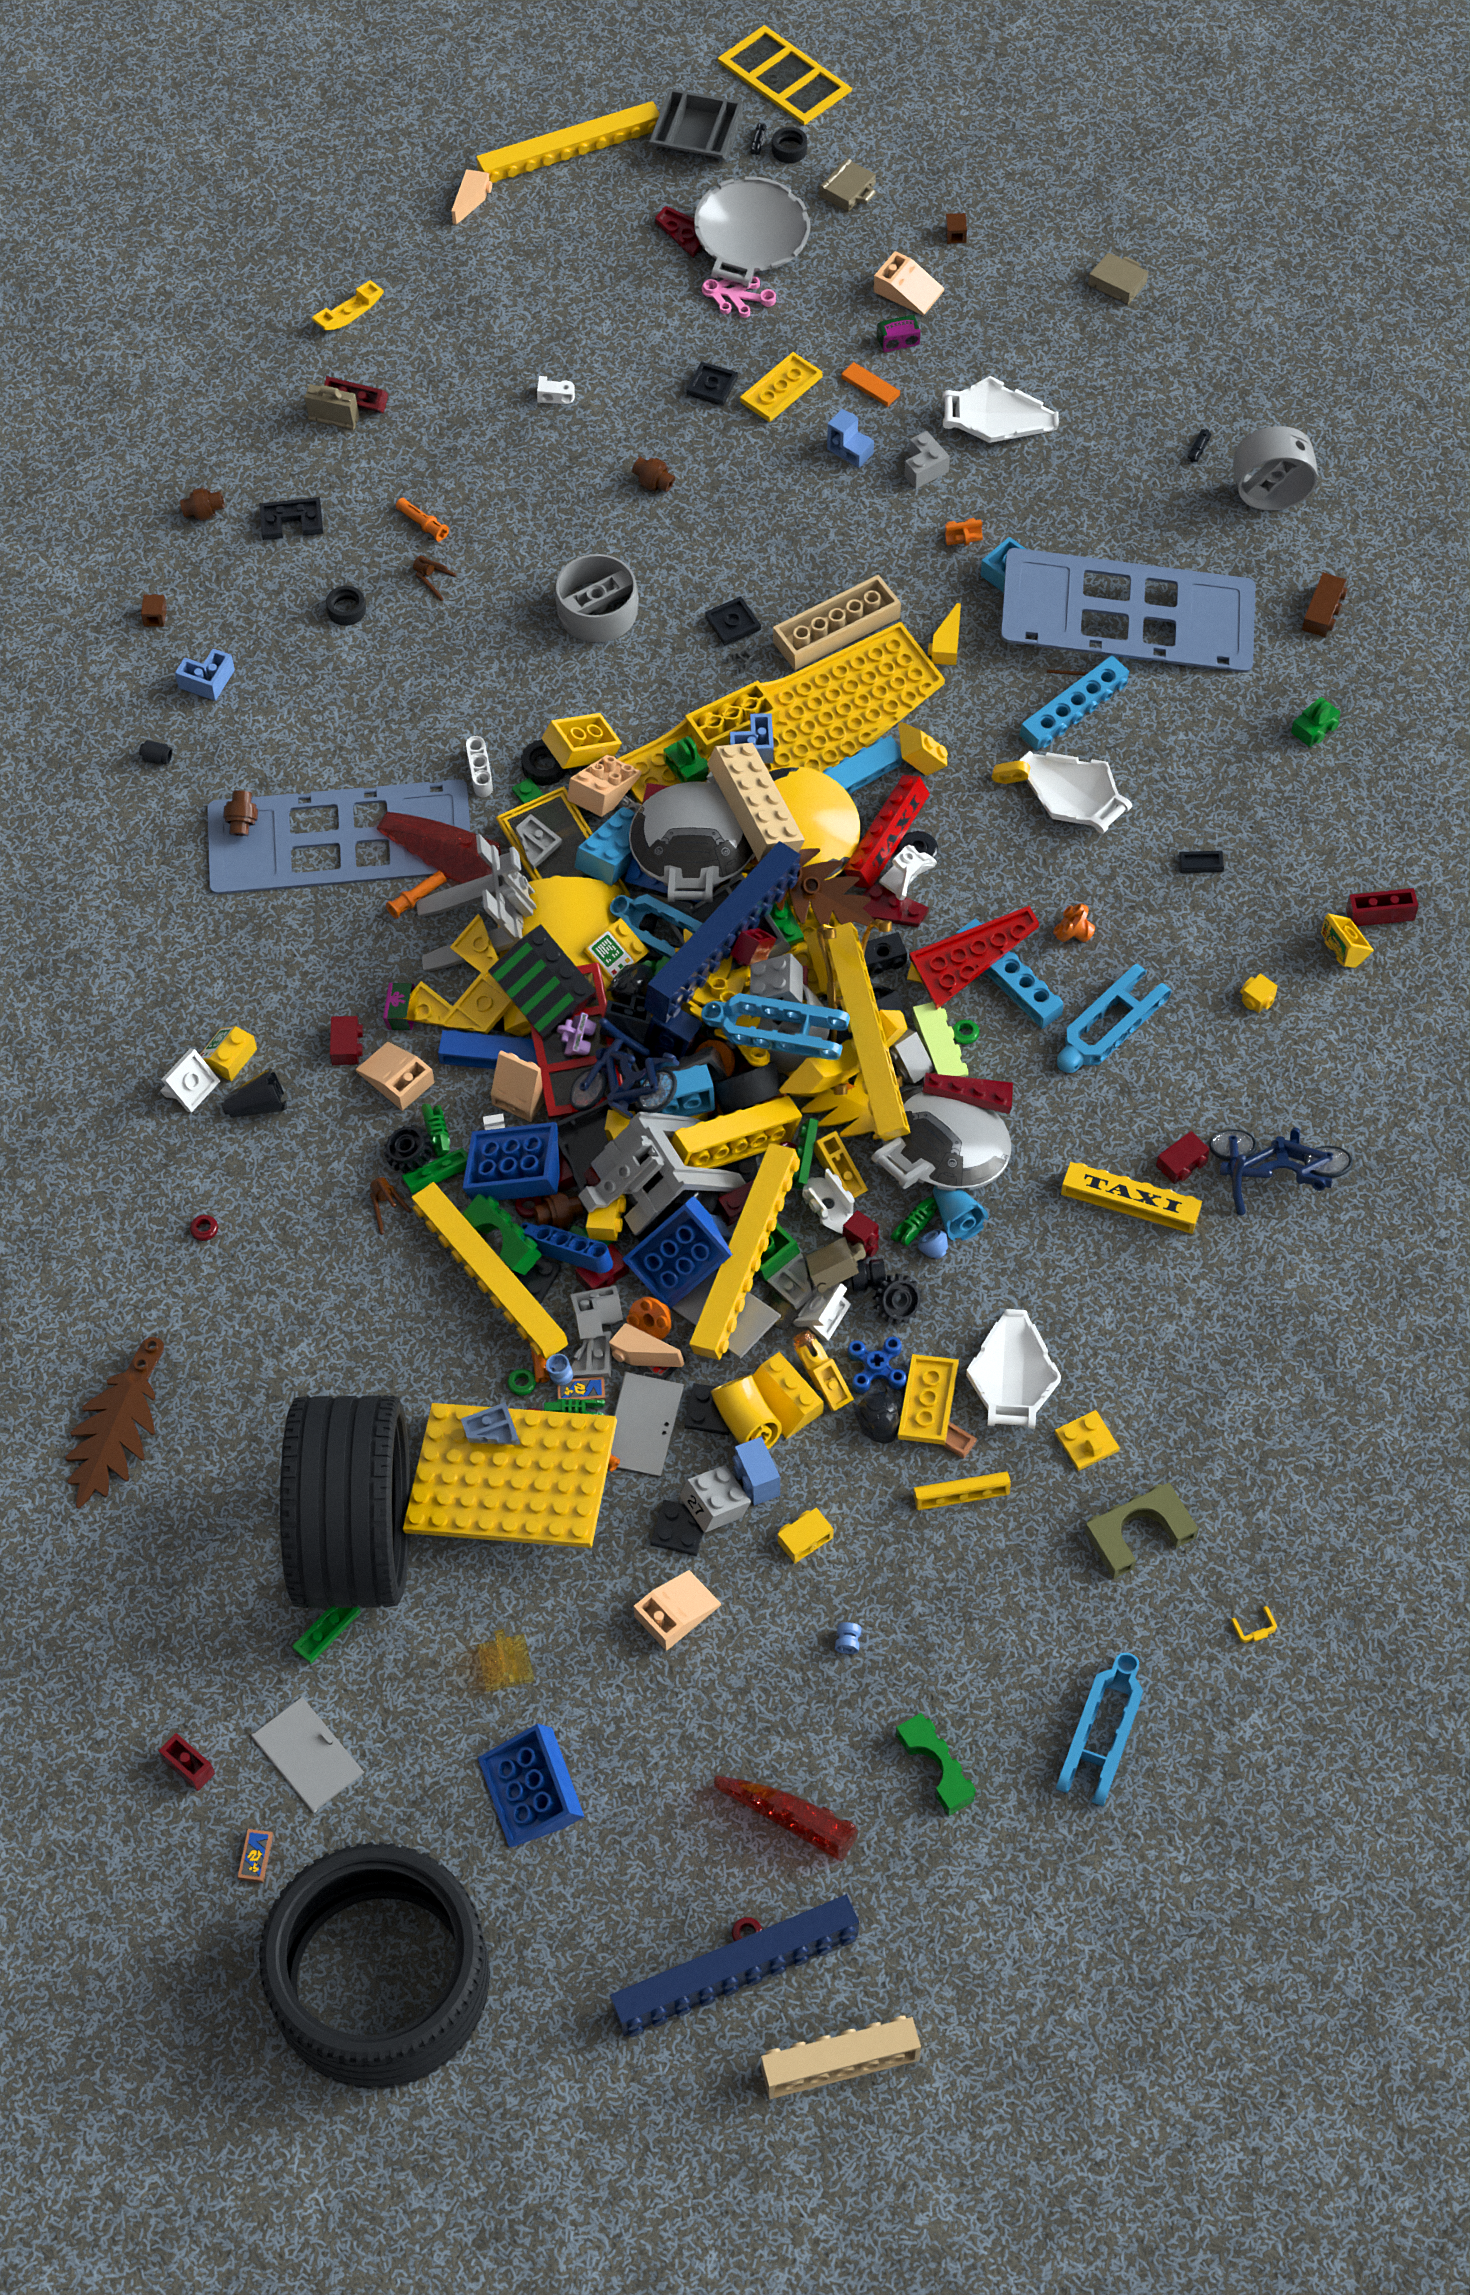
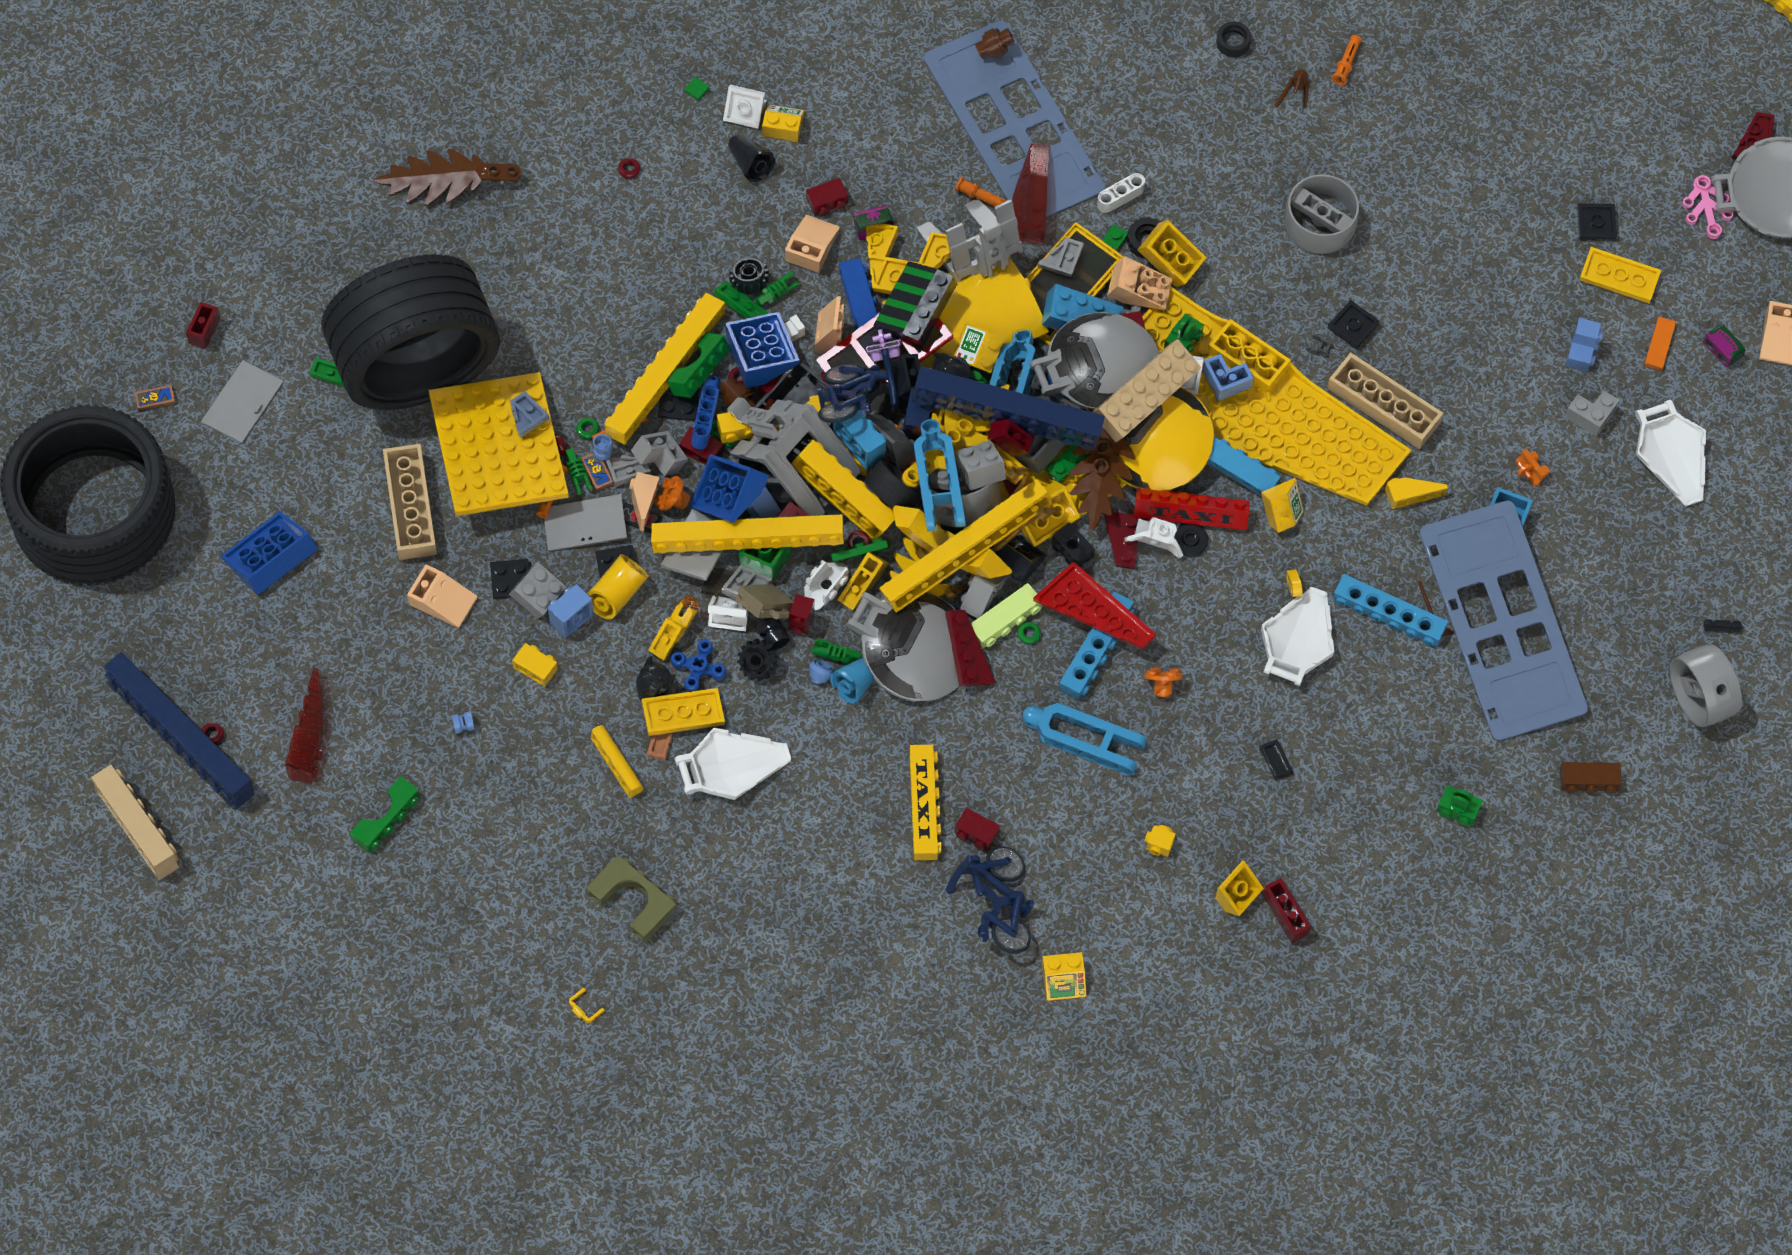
camera: 65 degrees right, 5 degrees up
(137, 1125) = (697, 89): none -> green tile
(383, 1191) = (707, 273): reddish brown plant -> none
(505, 1661) = (359, 501): clear yellow bracket -> none
(536, 1601) = (409, 502): none -> tan brick
(554, 391) = (1526, 106): white leg -> none
(653, 474) = (1473, 210): reddish brown piece -> none
(787, 1394) = (646, 610): yellow slope -> none
(1087, 1440) = (696, 838): yellow hinge -> none
(1122, 1679) = (504, 922): dark azure piece -> none
(1384, 1135) = (1064, 976): none -> yellow slope

